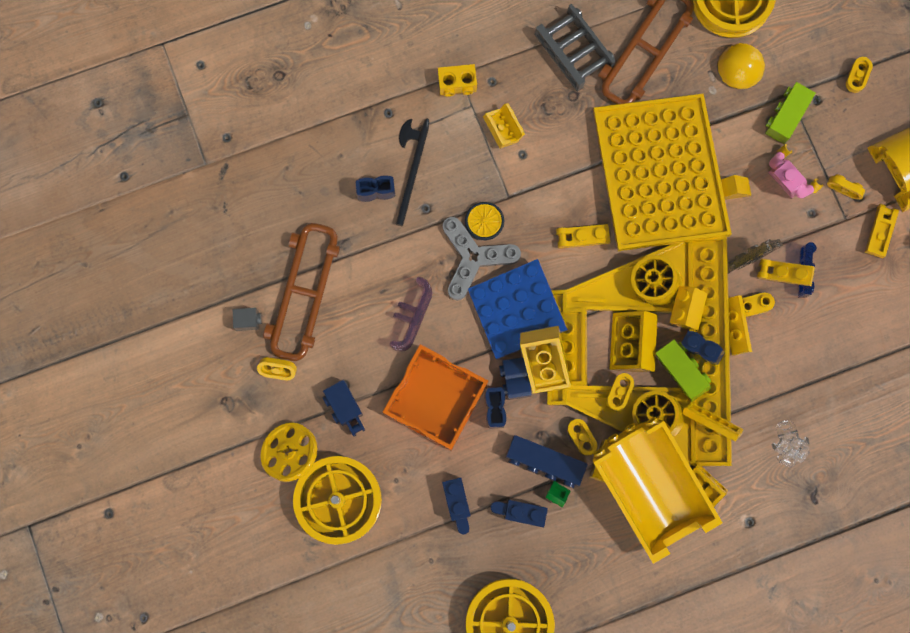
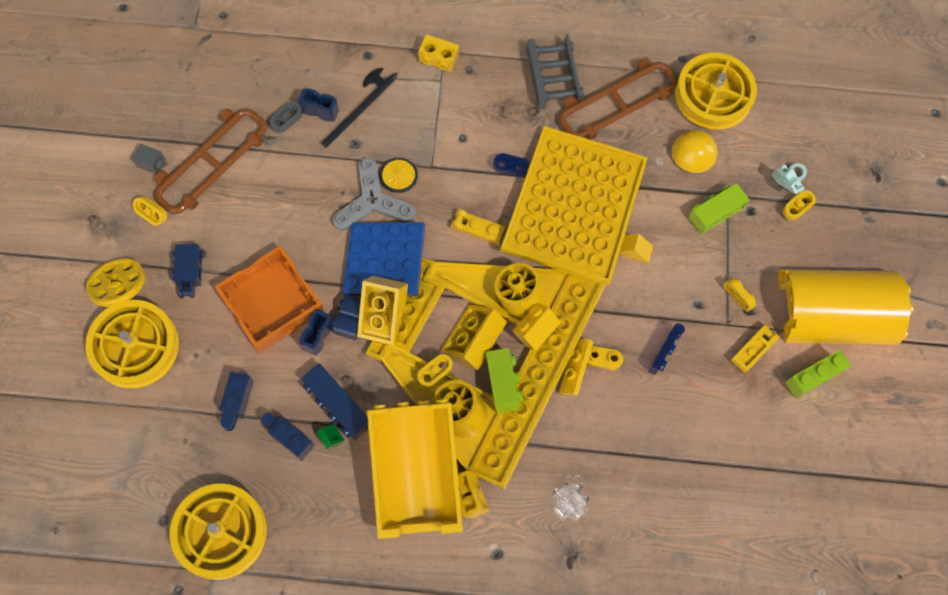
camera: 25 degrees right, 10 degrees down
(349, 215) = (284, 116): none -> dark grey plate
(415, 322) = (291, 226): clear purple piece -> none
(504, 126) = (457, 106): yellow bracket -> none
(581, 159) = (511, 164): none -> clear blue plate
(583, 436) = (383, 397): yellow plate -> none
(697, 345) = (531, 367): dark blue brick -> none
(717, 424) = (505, 437): yellow plate -> none
(754, 254) = (622, 308): clear smoke wing -> none
(786, 272) = (645, 341): yellow plate -> none
(789, 177) = (690, 261): bright pink torso -> none
(840, 54) = (788, 179): none -> light aqua piece

